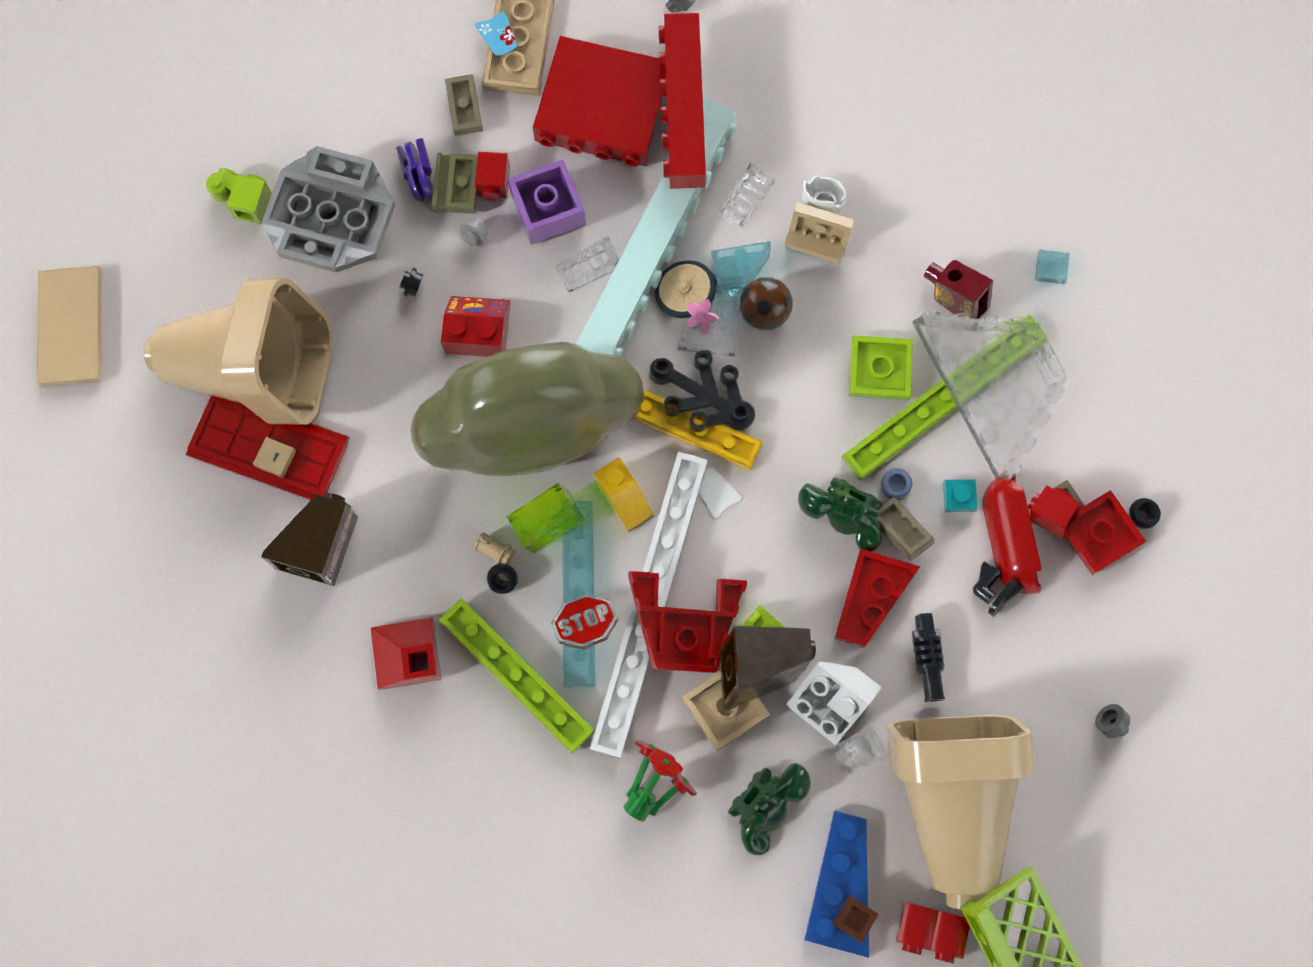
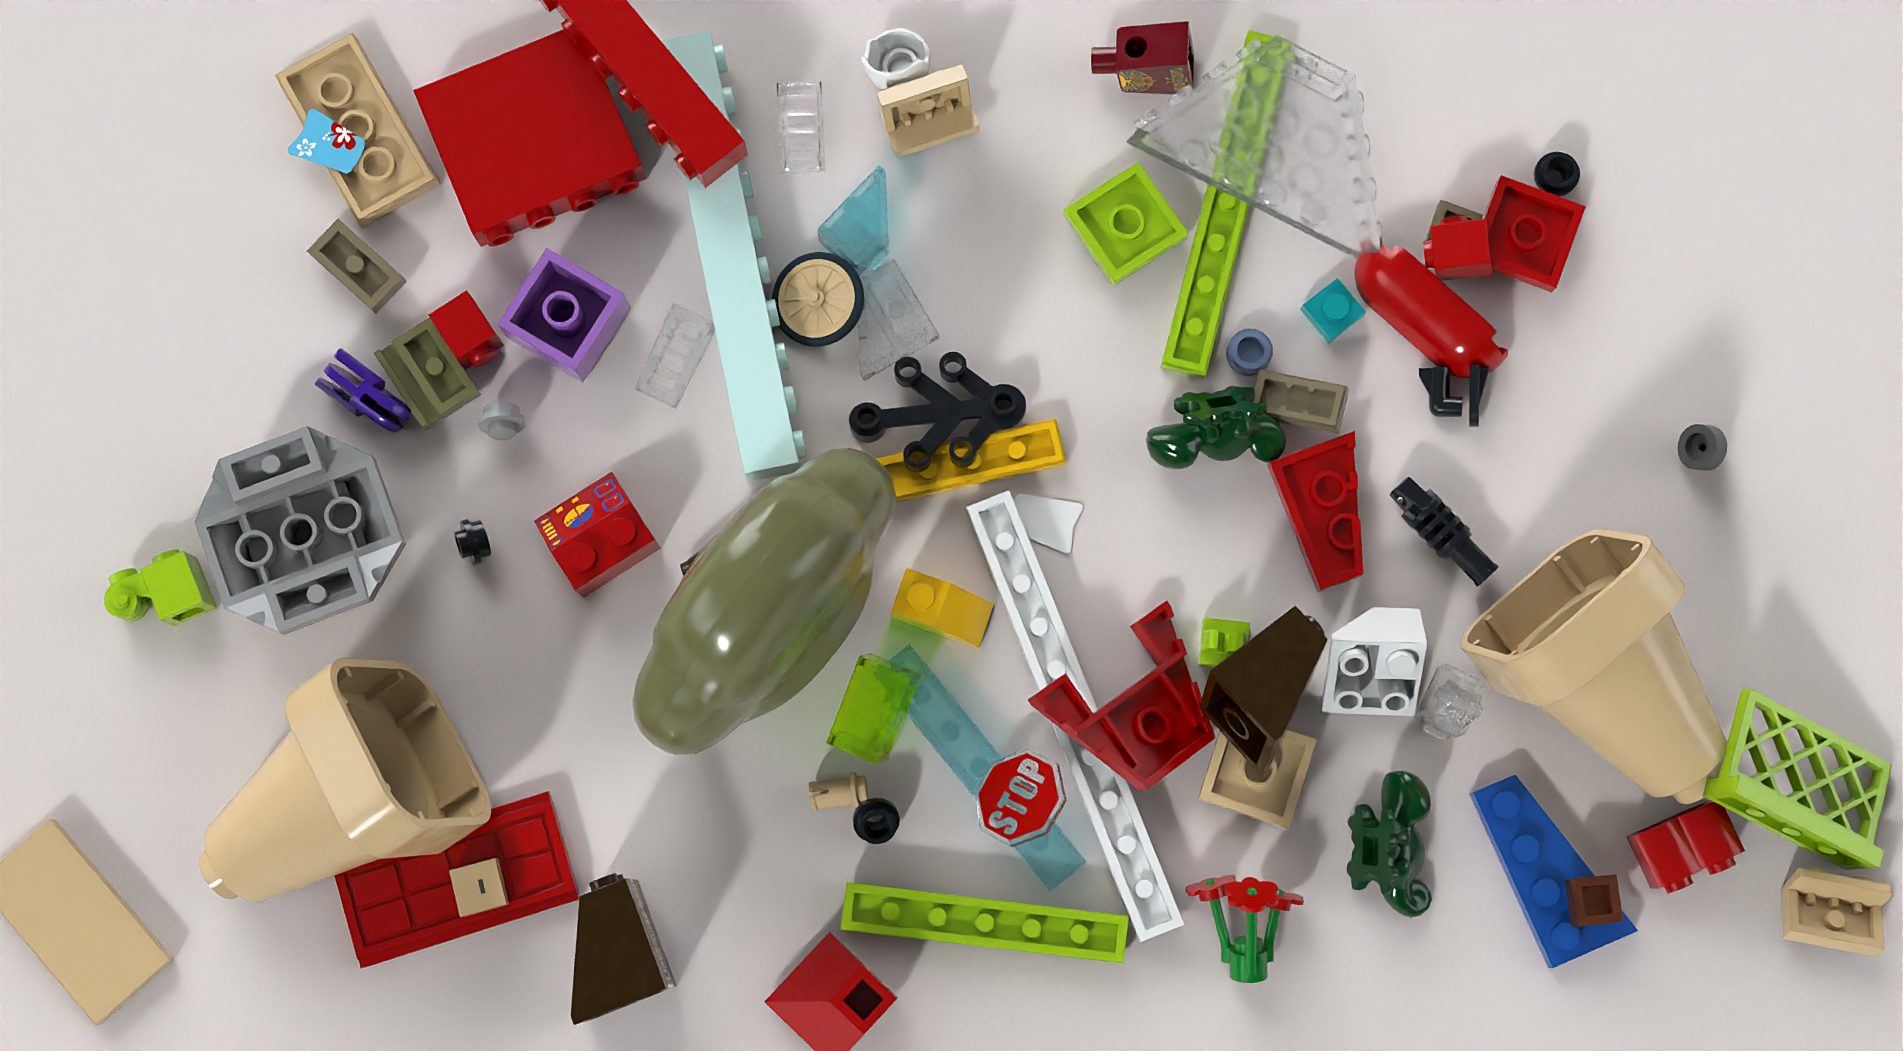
camera: 40 degrees left, 5 degrees up
(701, 315) = (866, 319): bright pink plant -> none
(766, 303) = (932, 246): reddish brown piece -> none

